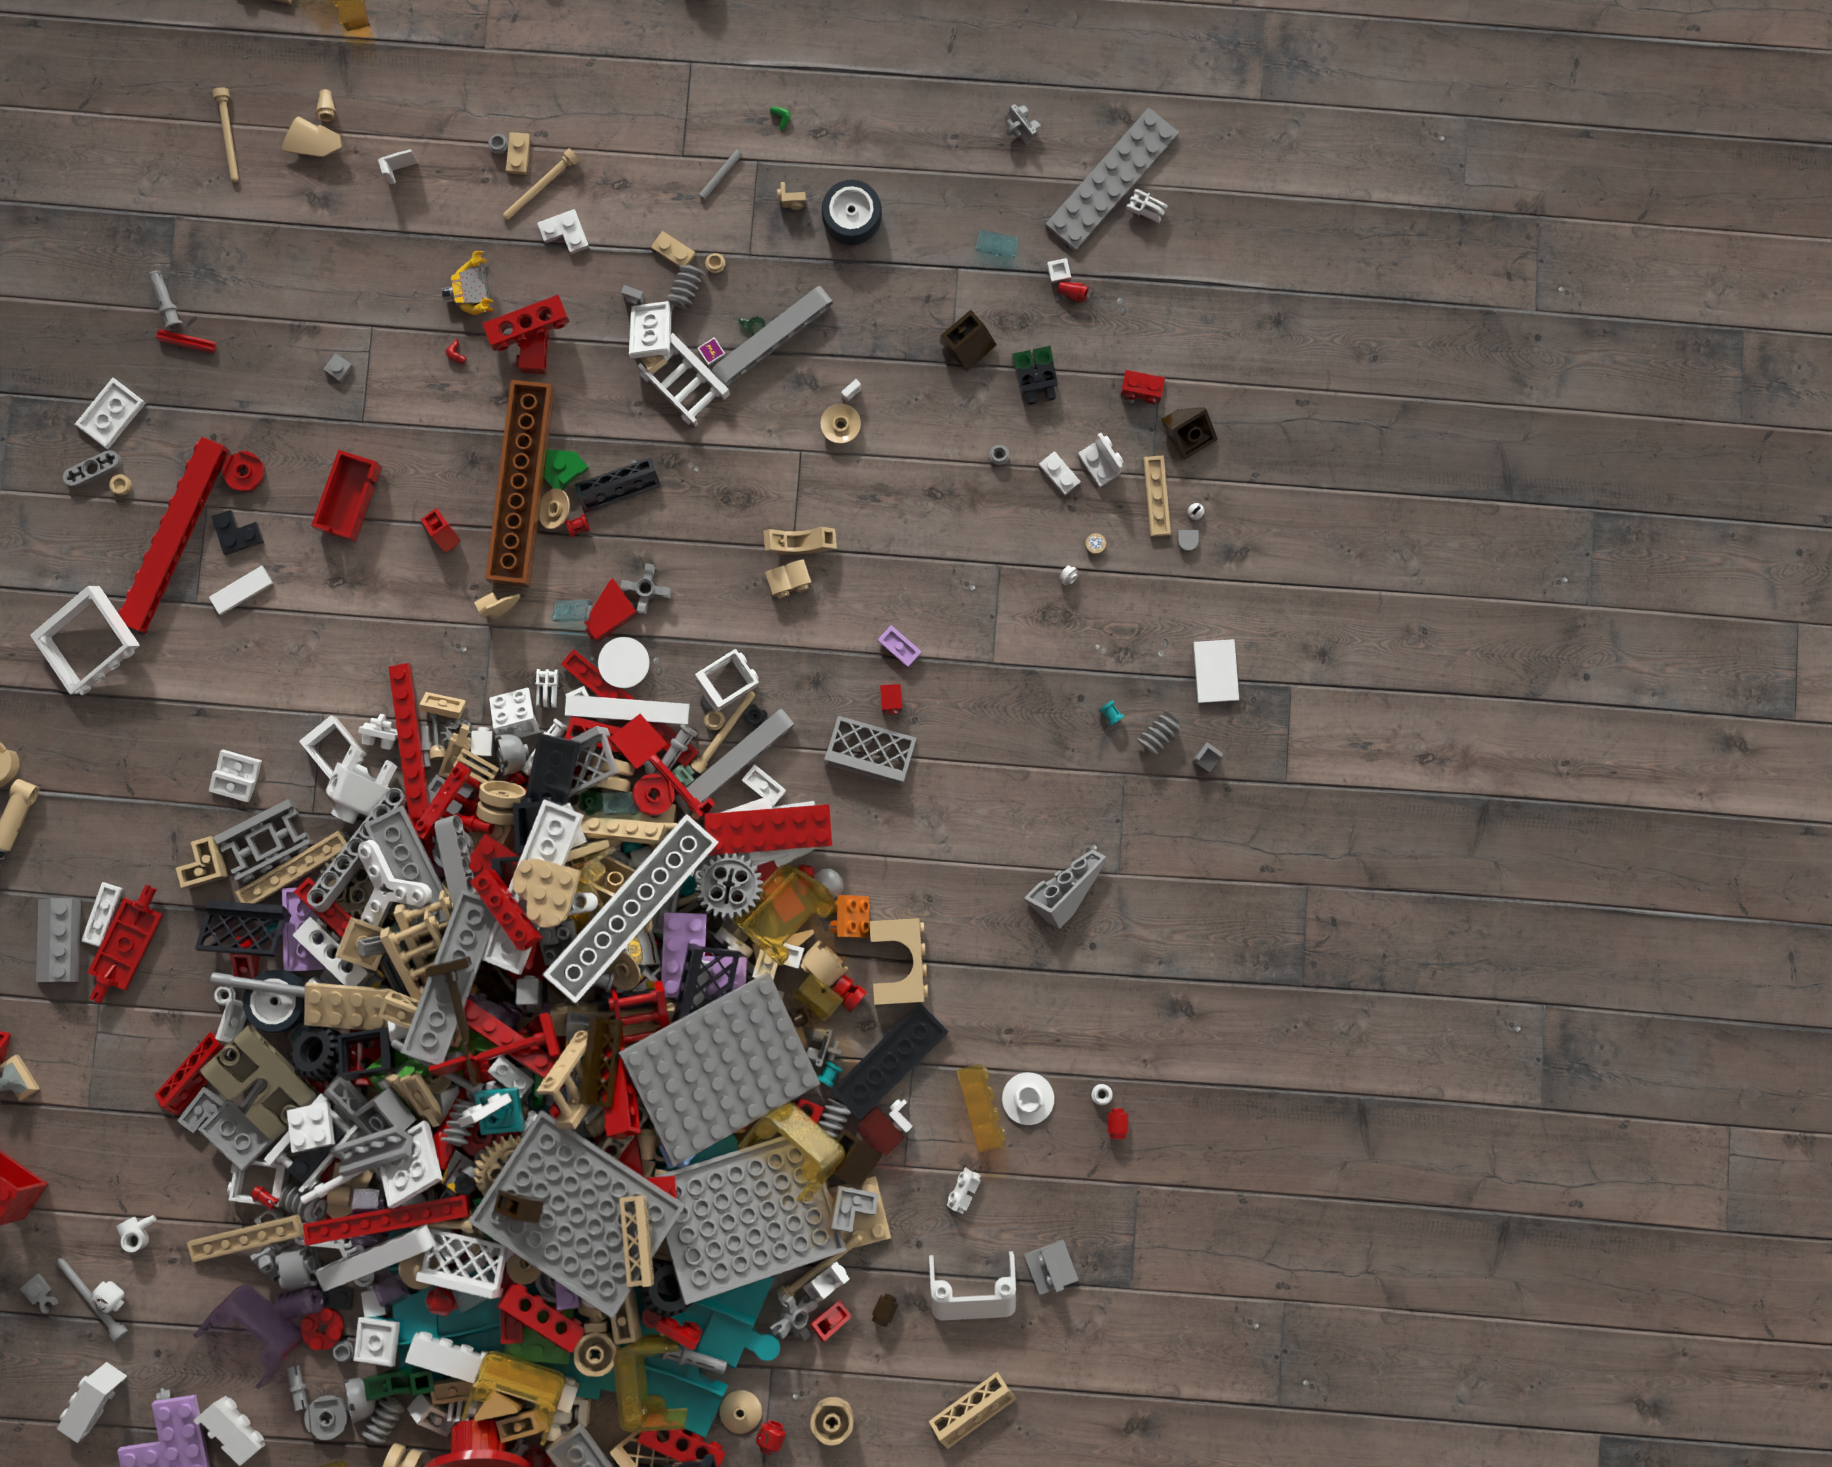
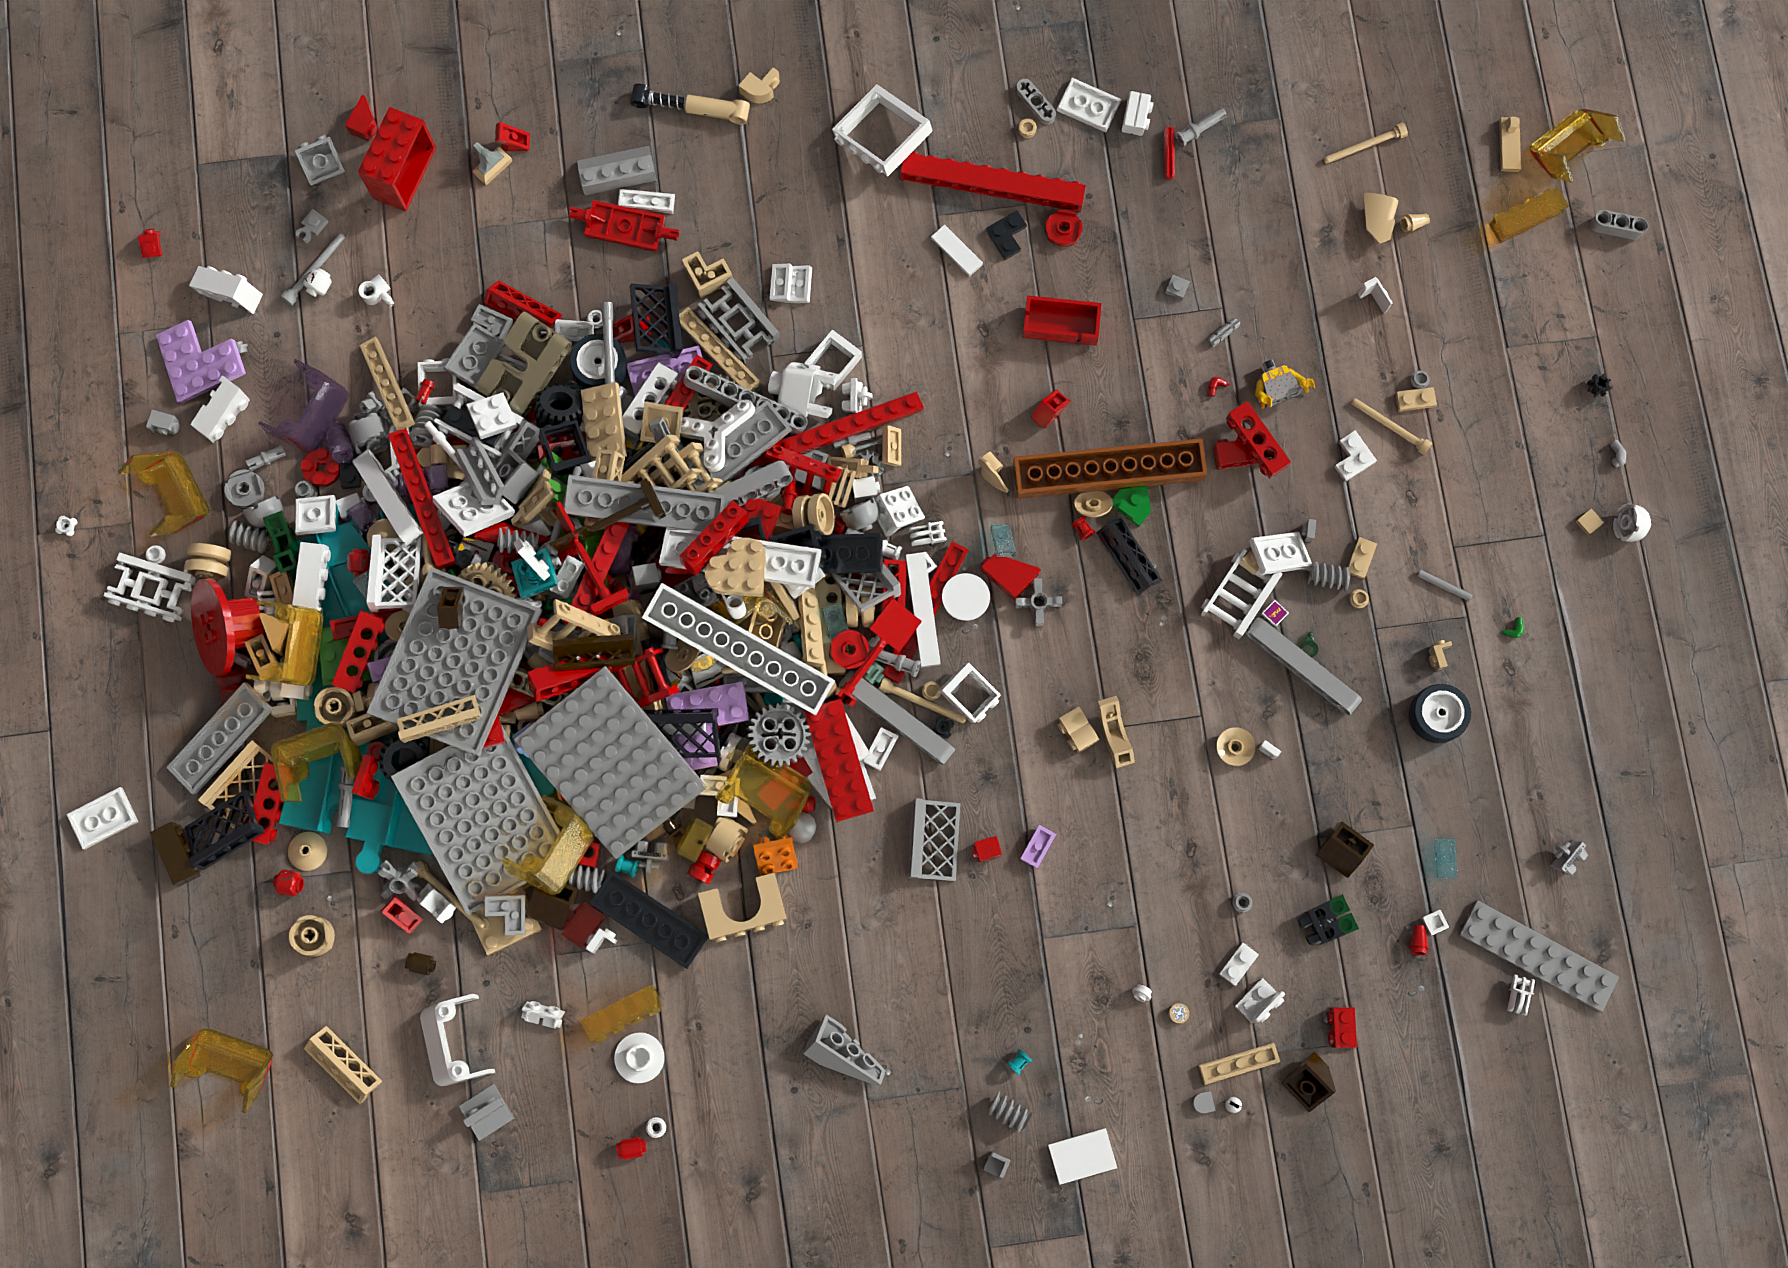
camera: 75 degrees right, 5 degrees down
(133, 365) = (1136, 113): none -> white brick
(399, 331) = (1223, 332): none -> light grey axle
(594, 806) = (831, 599): dark green plant -> none
(687, 14) = (1589, 522): none -> tan tile

